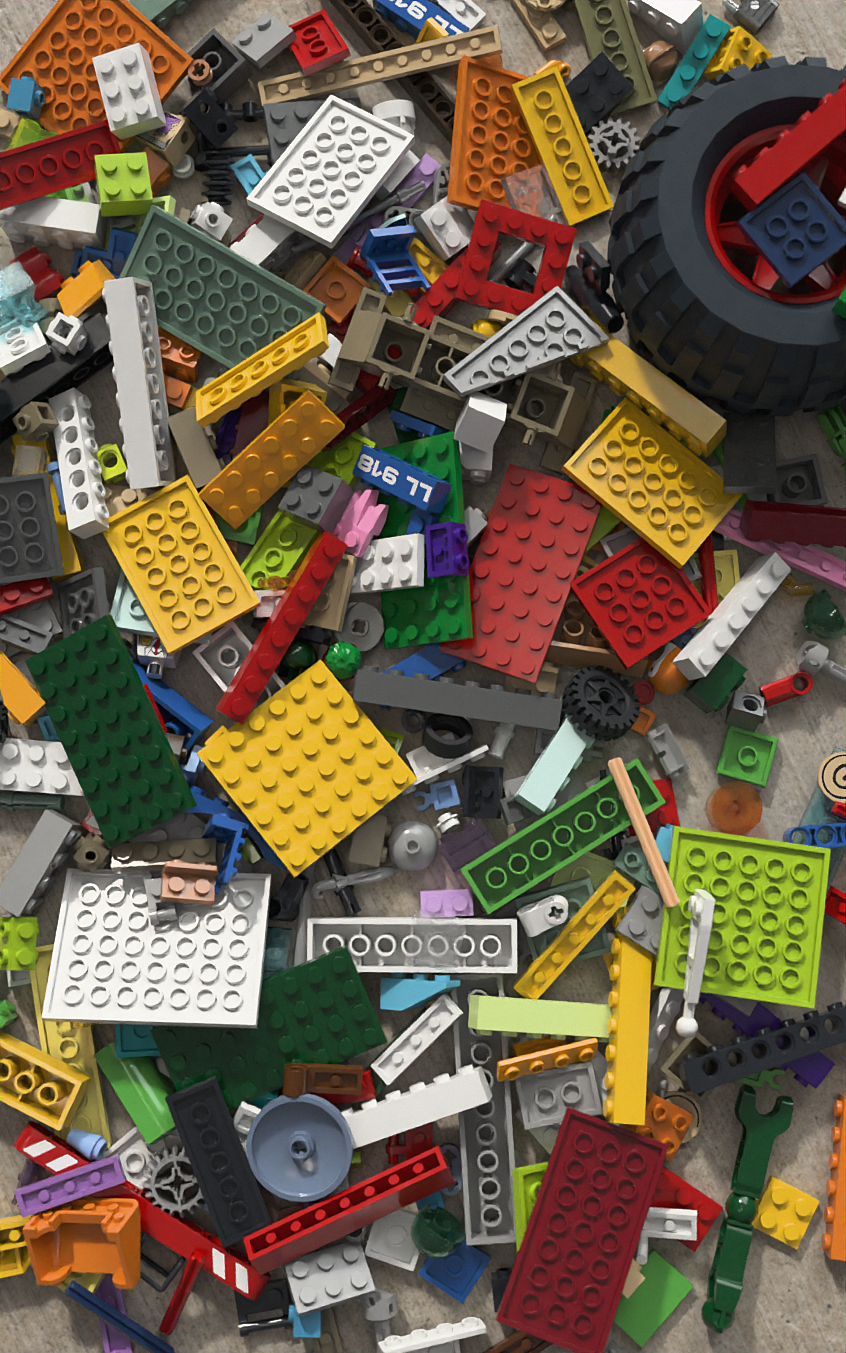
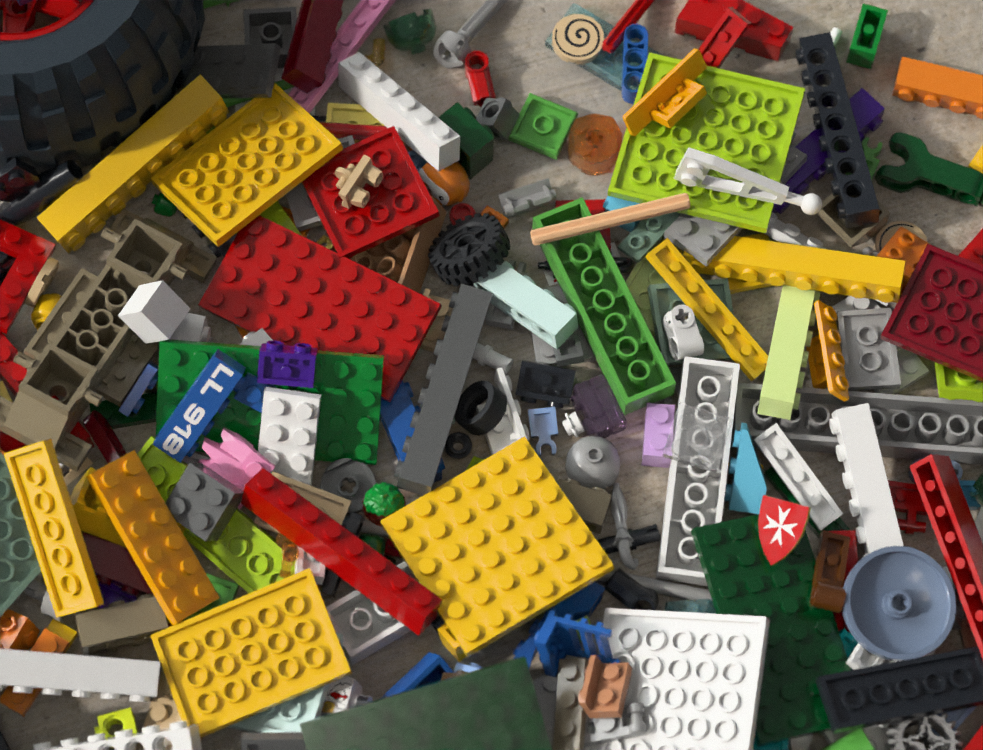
camera: 85 degrees left, 15 degrees down
(354, 1029) = (781, 527): none -> shield
(536, 338) = (76, 246): light grey wing -> none
(646, 583) = (353, 180): none -> tan hips
(780, 876) = (670, 96): none -> light orange bracket

